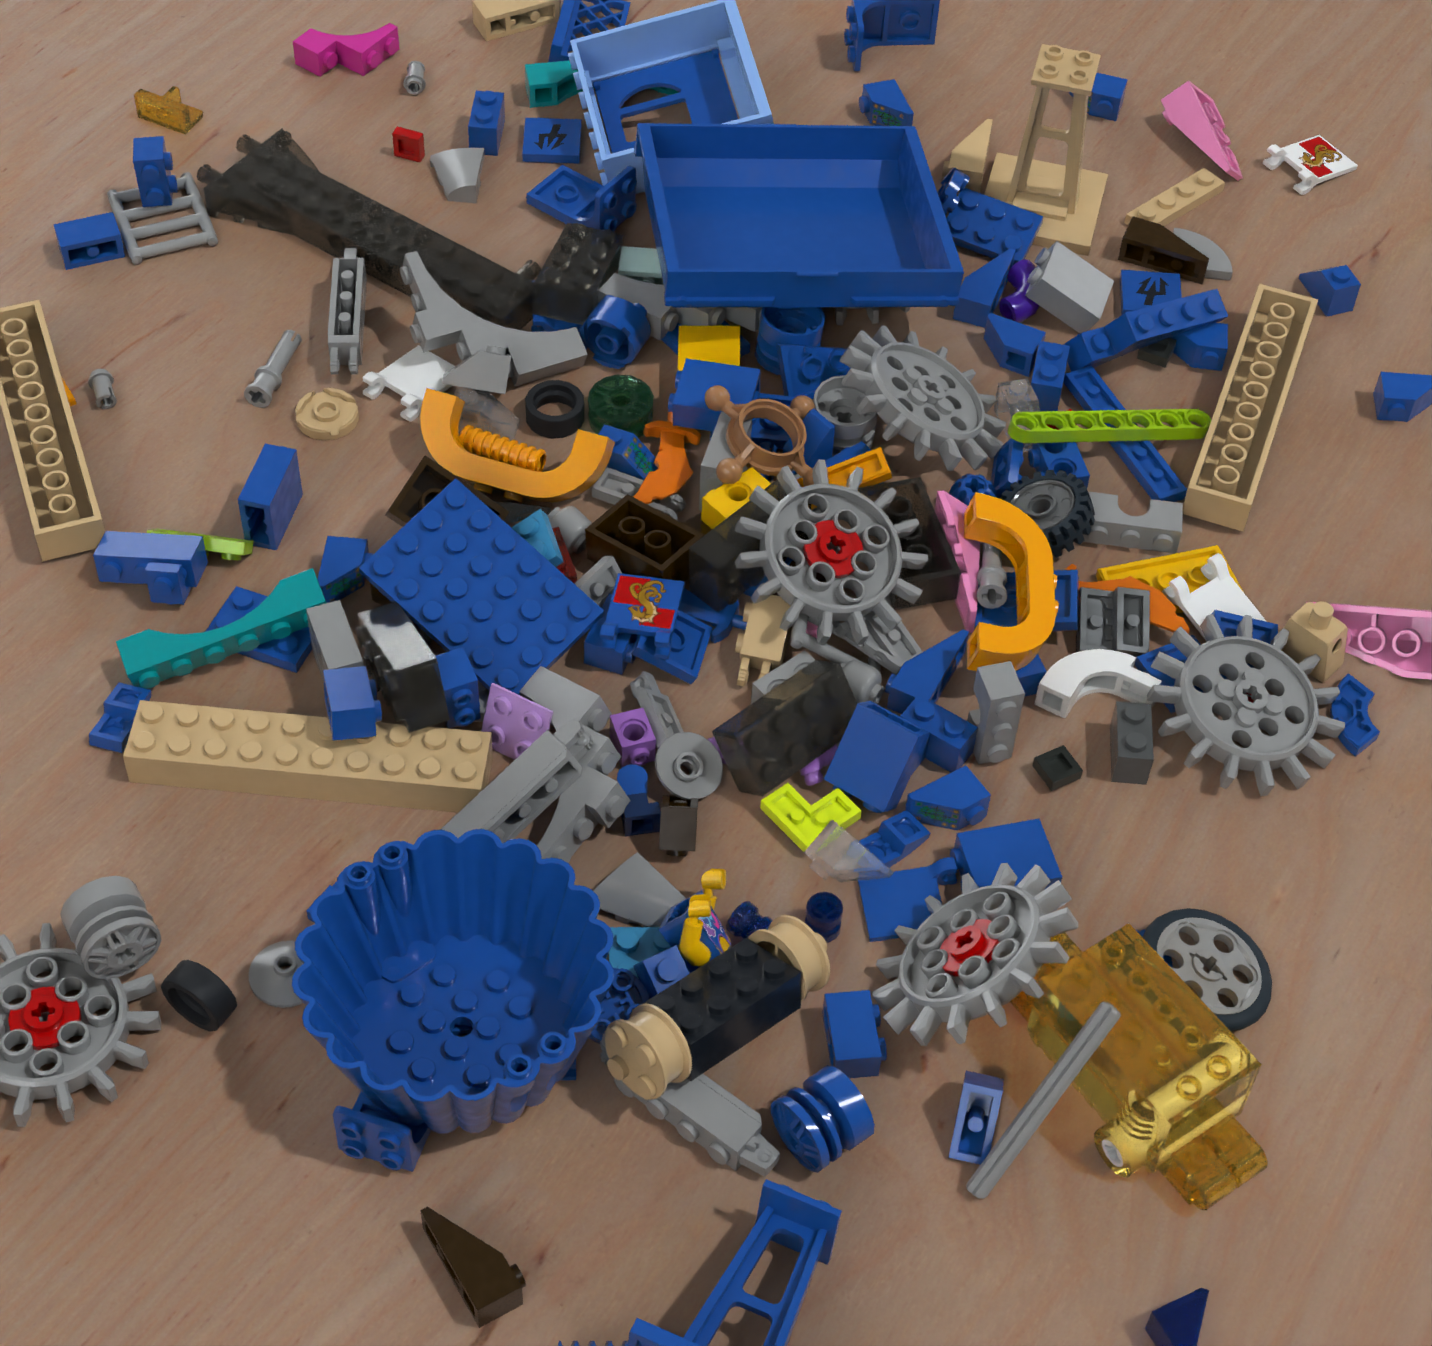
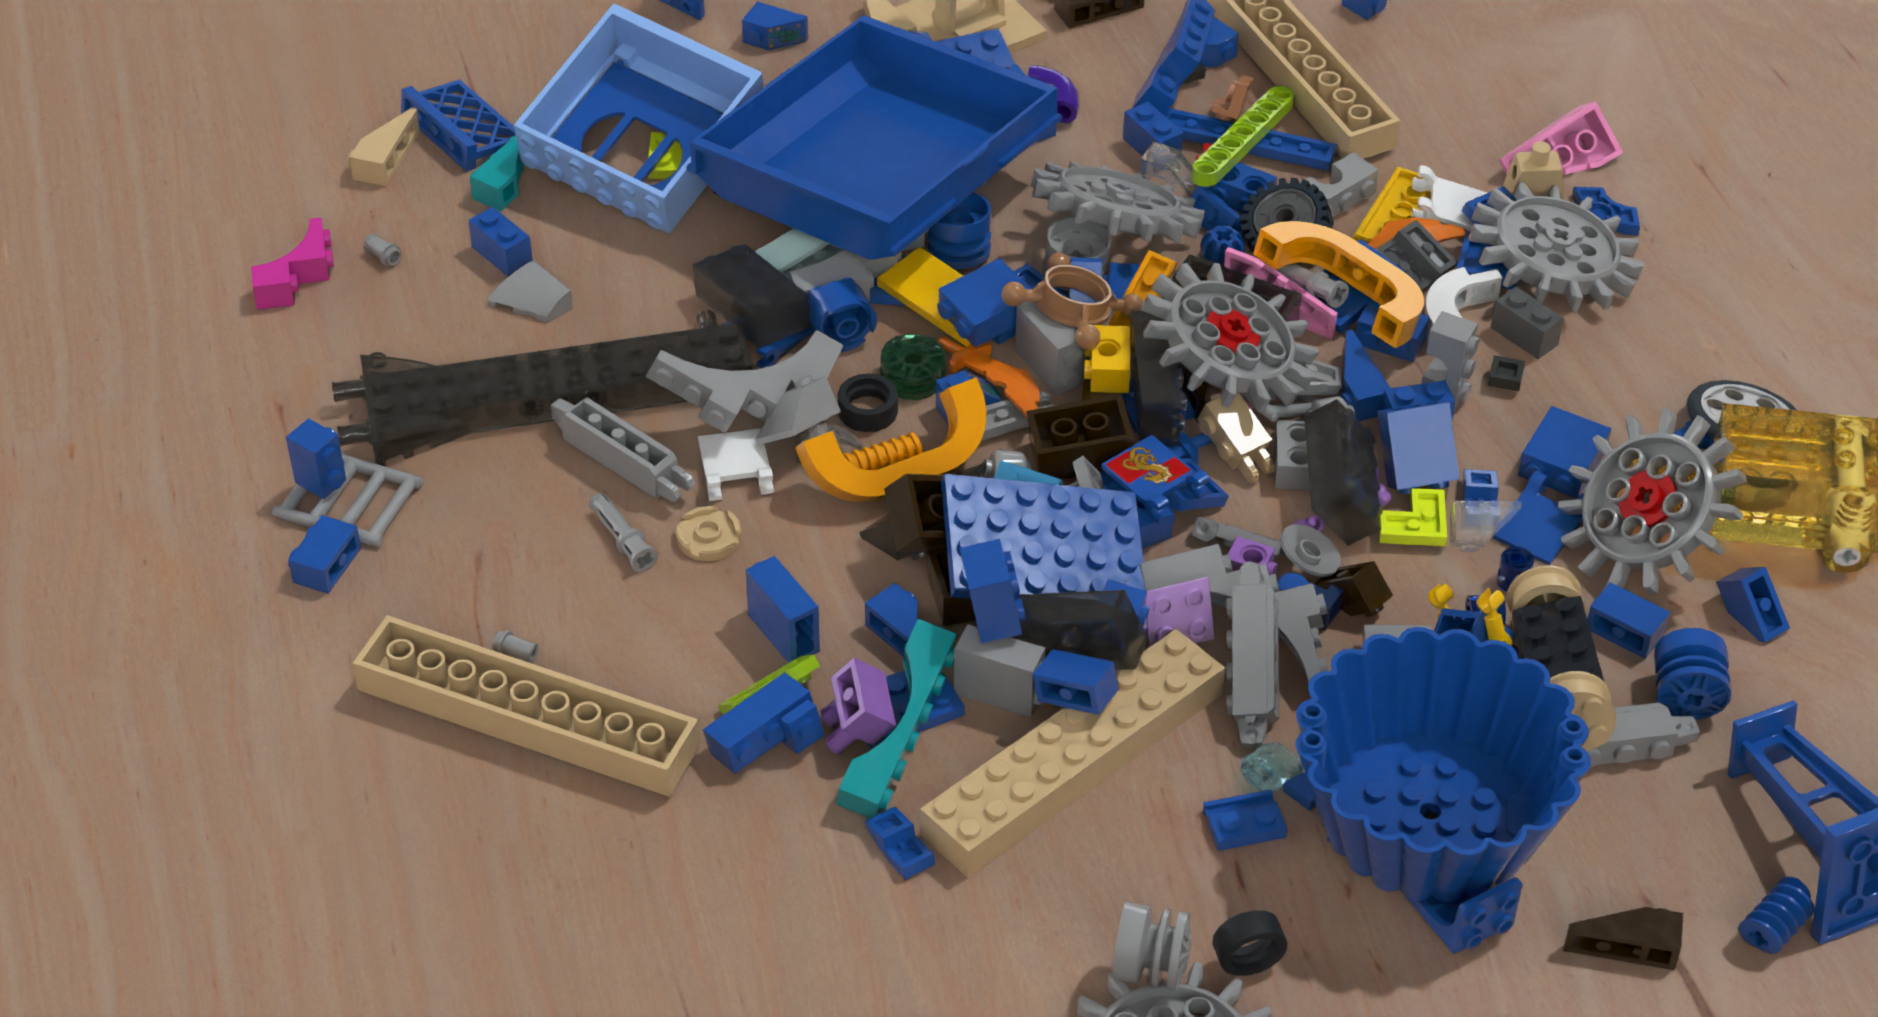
camera: 45 degrees left, 5 degrees down
(167, 110) = (219, 417): clear yellow panel -> none
(213, 598) = (860, 706): none -> medium lavender brick
(269, 981) = (1244, 895): light grey dish -> none
(360, 583) = (993, 590): none -> blue brick
(408, 144) = (463, 300): red plate -> none
(552, 140) = (561, 222): blue tile -> none
(583, 201) = (664, 246): blue bracket -> none
(807, 367) = (1011, 235): blue wing -> none
(950, 801) = (1483, 440): blue slope -> none
(1012, 343) = (1097, 130): blue slope -> none
(1043, 1100) = (1802, 547): light grey axle -> none
(1069, 287) = (1087, 64): light grey brick -> none
(1147, 289) = (1128, 36): blue tile -> none
(1148, 393) = (1235, 100): none -> nougat bracket

